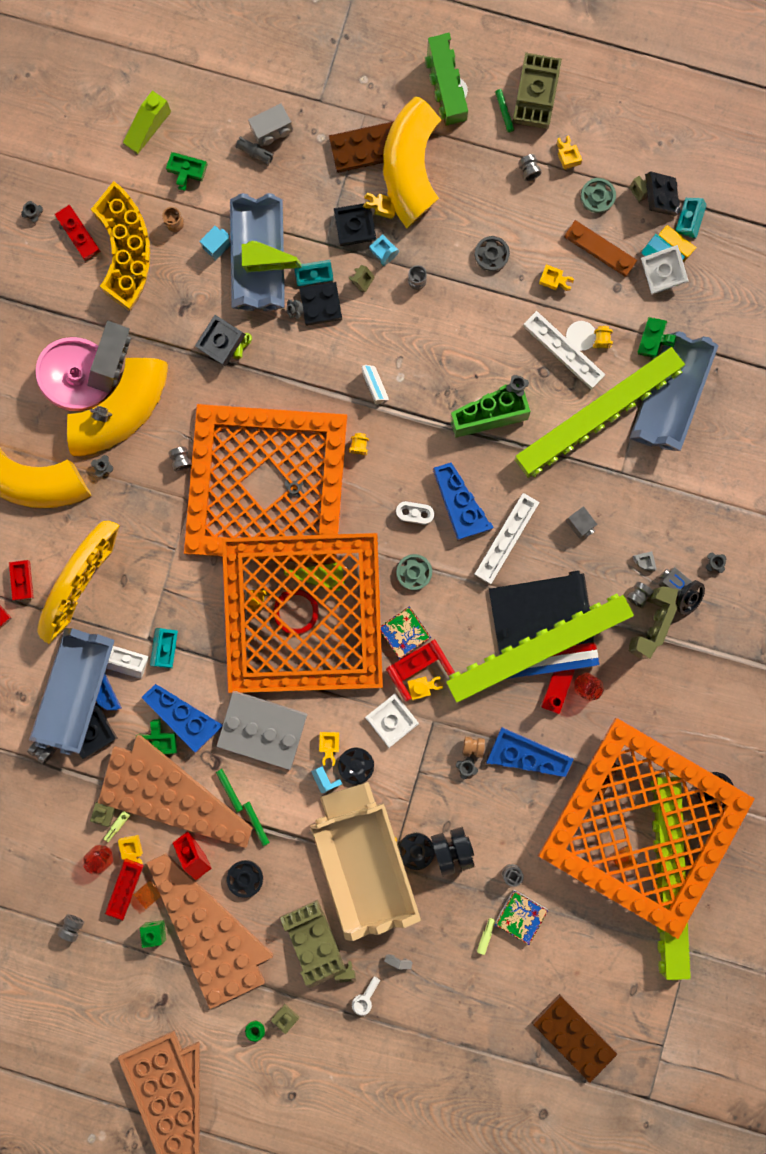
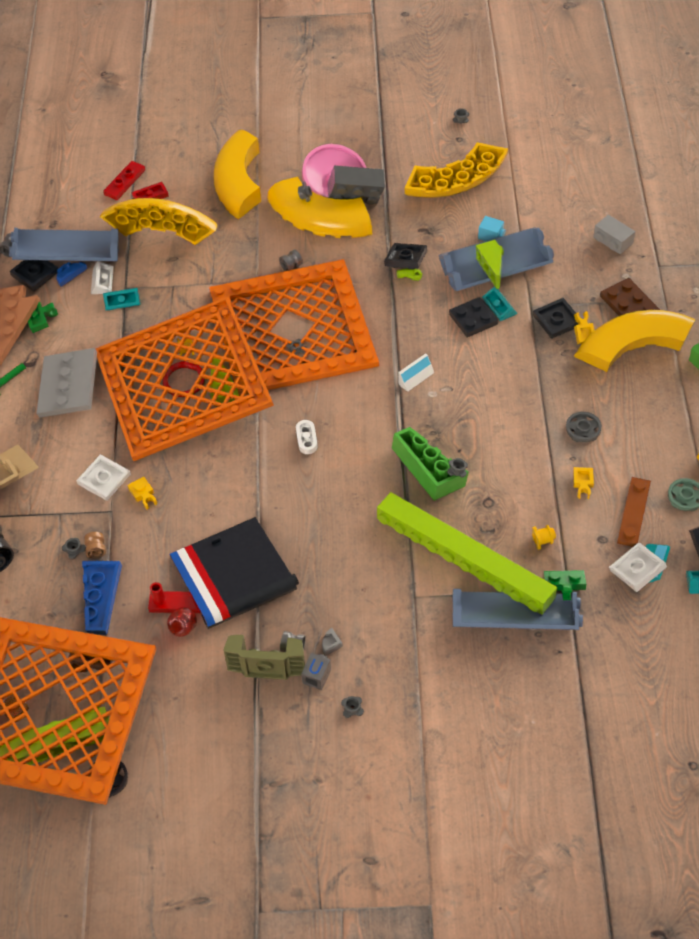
camera: 70 degrees right, 30 degrees down
(77, 232) = (457, 147): red plate -> none
(108, 468) = (265, 216): dark grey plate -> none
(147, 121) = (577, 160): lime slope -> none
(170, 215) = (497, 198): medium nougat wheel -> none
(185, 720) = (61, 329): blue wing -> none
(186, 168) = (547, 194): green plate -> none
(254, 150) = (587, 233): dark grey pin -> none
(294, 309) = (458, 297): dark grey plate -> none
(322, 780) = (32, 437): medium azure tile -> none
(329, 743) = (67, 435): yellow plate -> none
(356, 765) = (52, 461): black wheel -> none
(359, 444) = (354, 377): yellow brick -> none
(362, 278) = (509, 336): olive tile -> none
(384, 250) = (545, 347): medium azure tile -> none
(404, 632) = (190, 462): tile -> none
(414, 572) = (250, 455): sand green wheel -> none
(415, 662) = (162, 476): red plate -> none
(417, 273) = (530, 374): flat silver wheel -> none
(462, 509) = (323, 473): blue wing -> none
(506, 538) = (309, 515): white plate -> none
(530, 168) = (679, 430): flat silver wheel -> none
(540, 648) = (209, 565): lime brick -> none
(563, 350) = (515, 509): white plate -> none
(581, 335) = (539, 519): white sticker -> none
(582, 522) = (348, 571): flat silver brick -> none
(674, 238) = (673, 574): yellow slope -> none
(690, 597) = (304, 686): black wheel -> none

